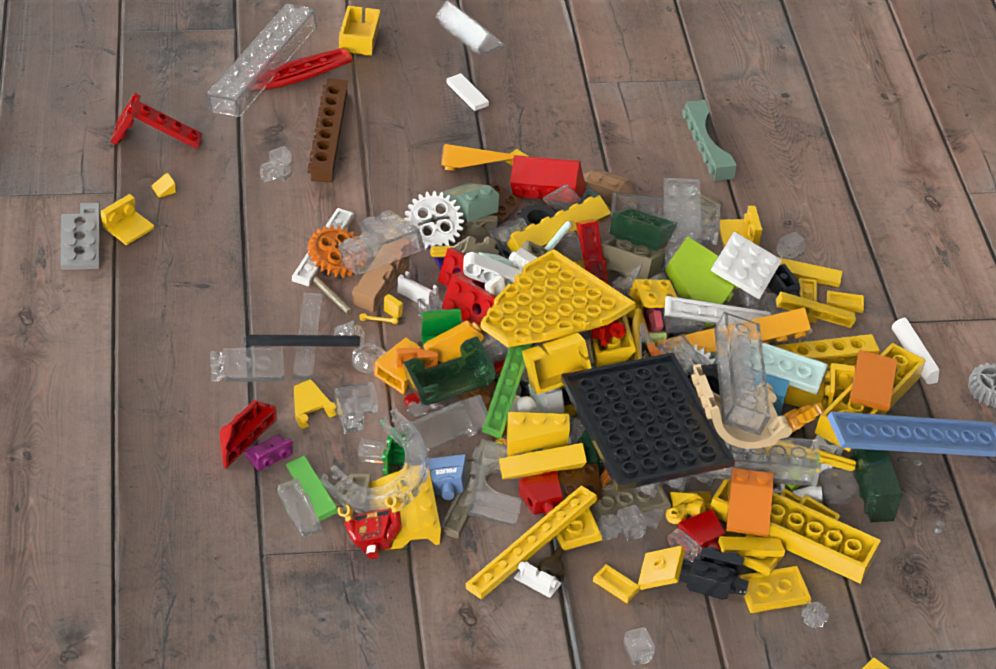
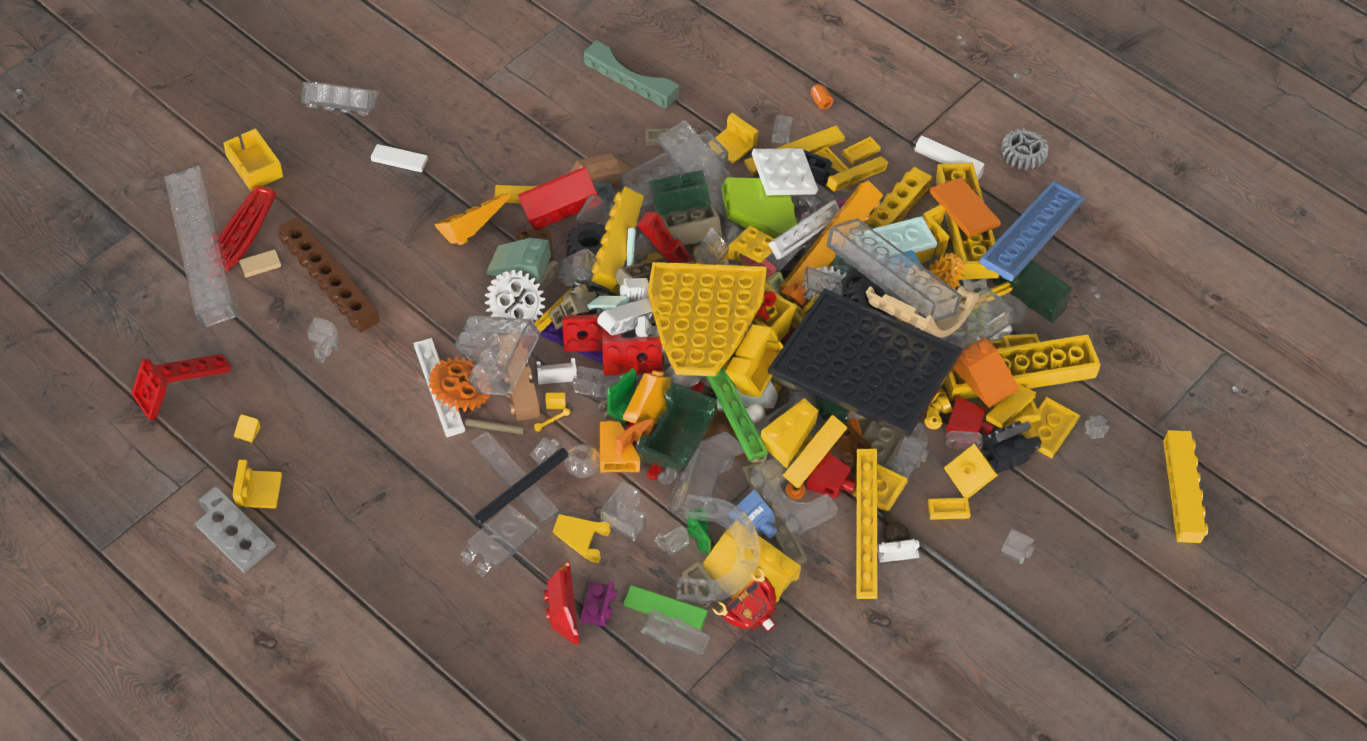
camera: 40 degrees left, 10 degrees up
(292, 96) = (260, 263): none -> tan tile
(505, 486) = (795, 494): none -> orange plate
(853, 244) = (822, 96): none -> orange brick

